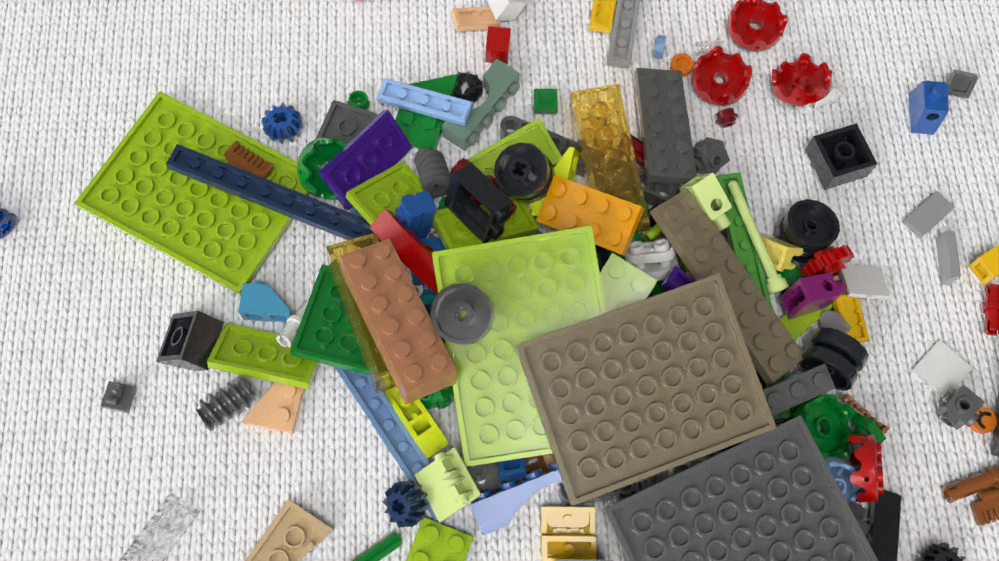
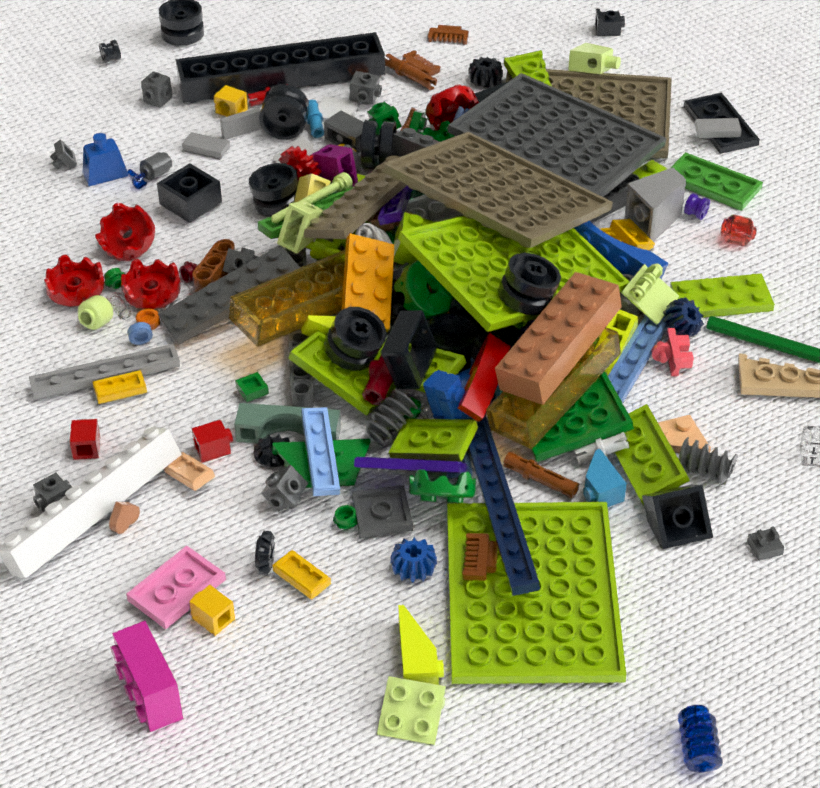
camera: 115 degrees left, 25 degrees down
(154, 55) = (411, 710): none -> yellowish green hinge
(197, 81) = (417, 651): none -> neon yellow slope
(300, 267) = (531, 470): none -> dark orange pin
(322, 47) = (301, 574): none -> yellow plate
(352, 25) = (265, 552): none -> black gear
(383, 478) = (674, 351): none -> coral hips
(409, 66) = (284, 488): none -> dark grey brick
(705, 24) = (95, 312): none -> yellowish green head
(718, 126) = (212, 265): none -> dark orange beam
(749, 57) = (113, 278): none -> green plate
(888, 396) = (384, 112): none -> green brick
(889, 352) = (343, 129): none -> dark grey brick
(892, 134) = (137, 179): none -> clear blue hand
(907, 152) = (156, 165): none -> dark grey brick
(928, 333) = (315, 119): none -> dark azure pin
(938, 295) = (284, 112): none -> black wheel

